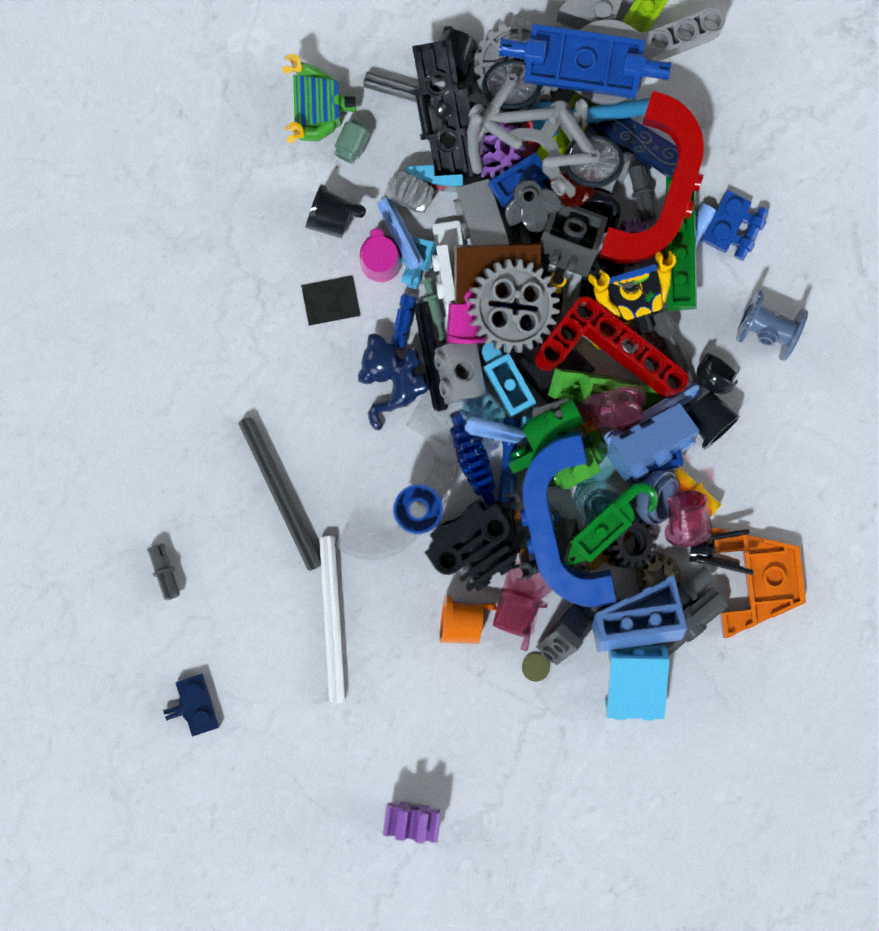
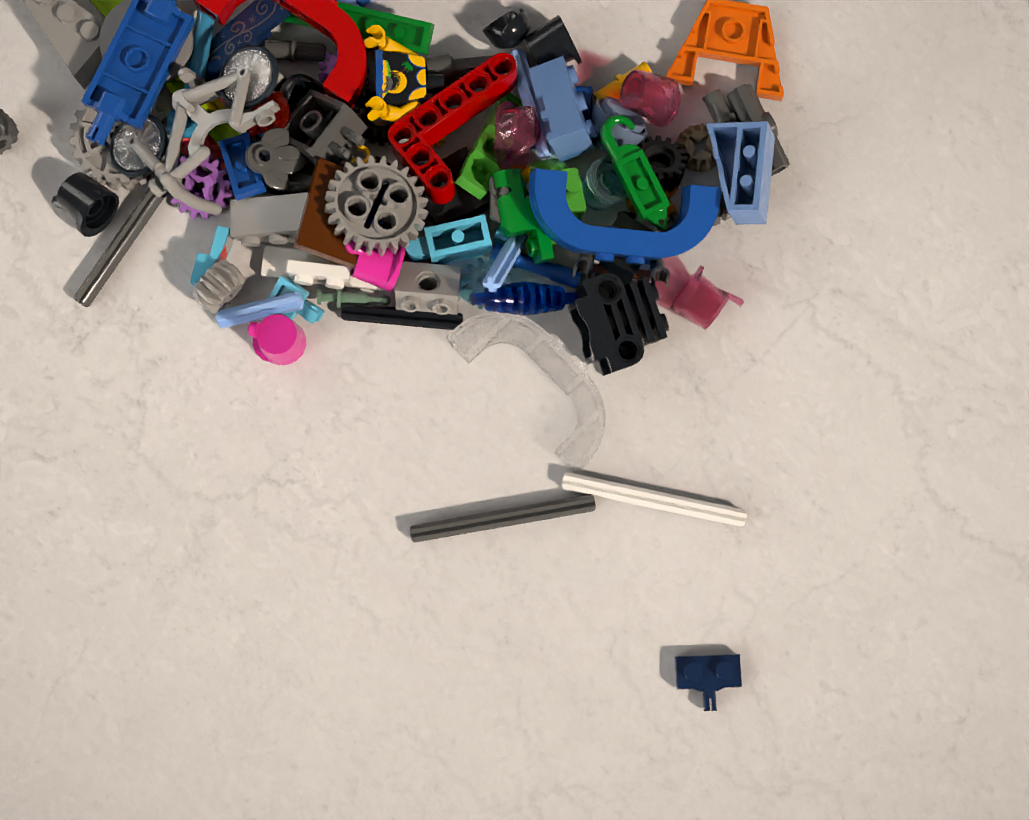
camera: 80 degrees left, 5 degrees down
(163, 572) = (553, 668): dark grey axle -> none
(315, 102) = (88, 360): torso -> none
(330, 300) = (308, 407): pearl dark grey sticker -> none
(331, 213) = (215, 375): black hat -> none
(351, 141) = (143, 334): sand green brick -> none
(381, 364) = (395, 367): dark blue animal -> none
(402, 509) = (565, 347): blue piece -> none
(403, 321) = (355, 335): blue axle -> none
(412, 822) = (895, 470): medium lavender gear -> none
(450, 107) = (141, 215): black piece -> none
(462, 621) = (694, 360): orange hat -> none
(535, 667) = (762, 300): olive piece -> none
(566, 635) = (738, 255): dark grey pin -> none
(638, 683) = (808, 193): medium azure panel -> none
(704, 552) = (689, 90): black plant -> none

